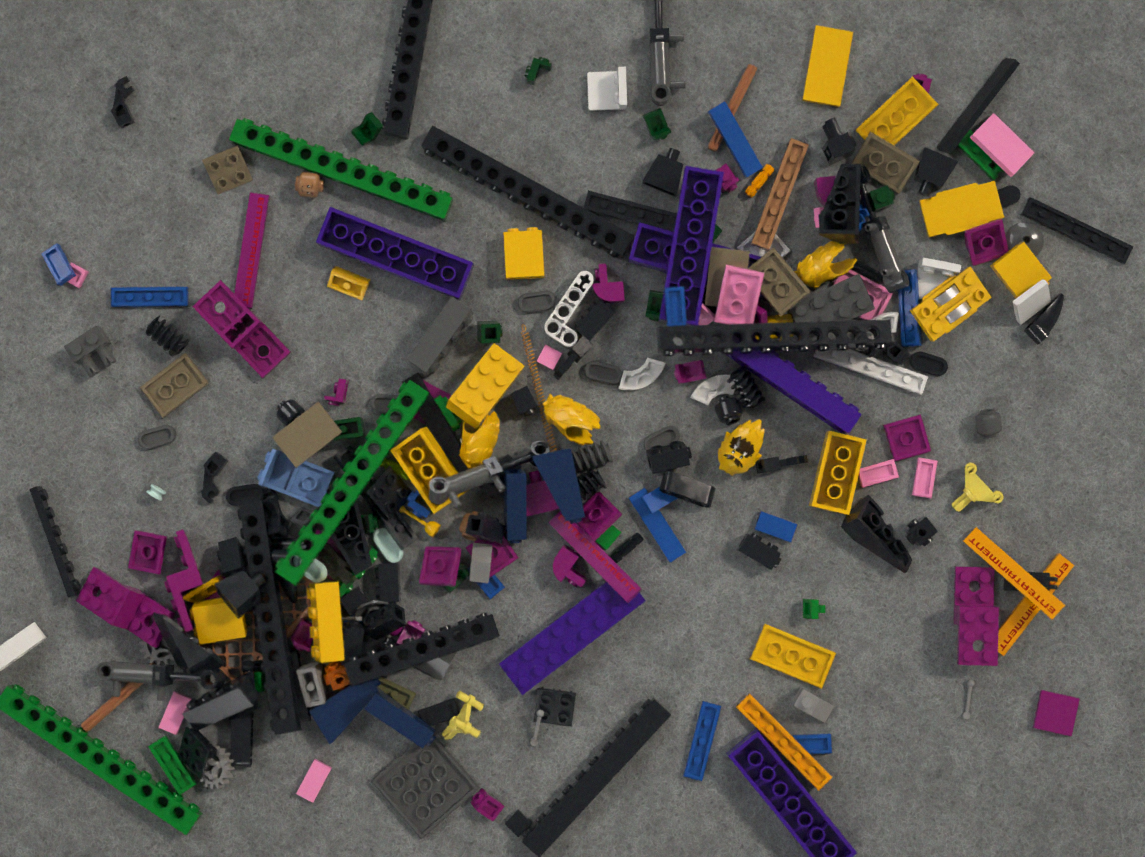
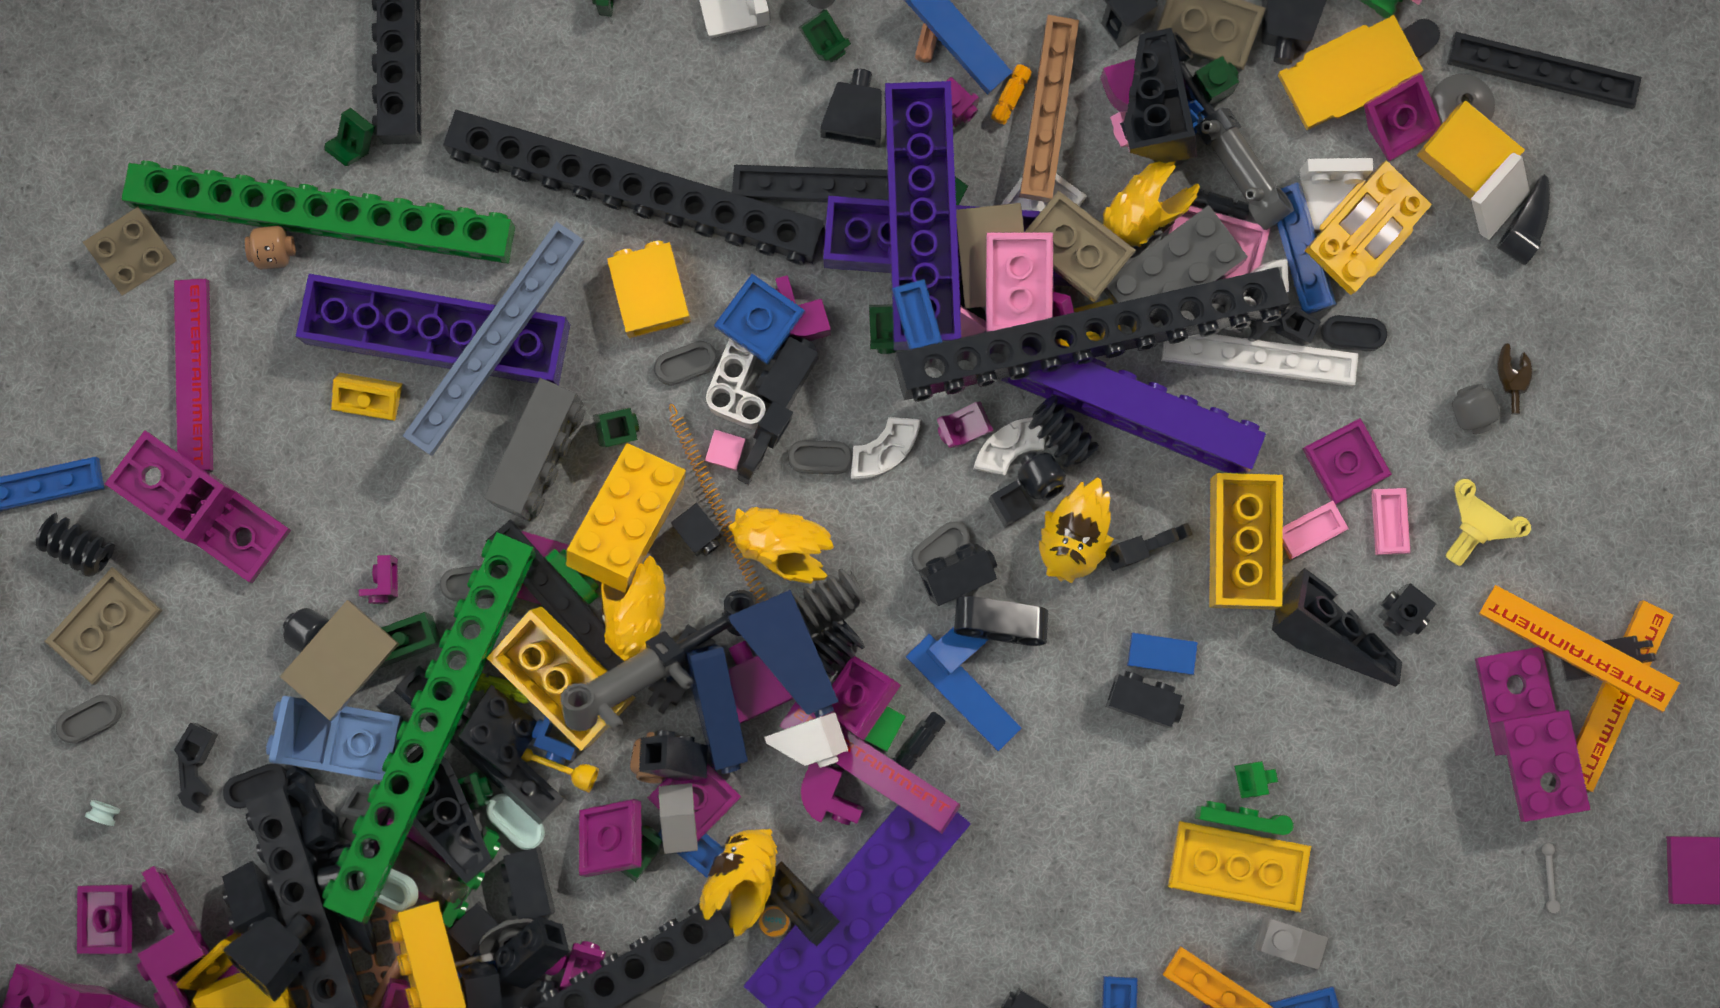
camera: 15 degrees left, 5 degrees down
(430, 267) = (494, 339): none -> sand blue plate
(511, 603) = (746, 873): none -> yellow head
(523, 631) = (773, 922): none -> tile
(539, 625) = (801, 905): none -> black tile
(565, 535) = (811, 741): none -> white slope
(584, 286) = (759, 319): none -> blue tile
(707, 422) = (1010, 503): none -> black panel
(802, 629) = (1245, 818): none -> green plate
(1016, 411) = (1514, 381): none -> dark brown hand

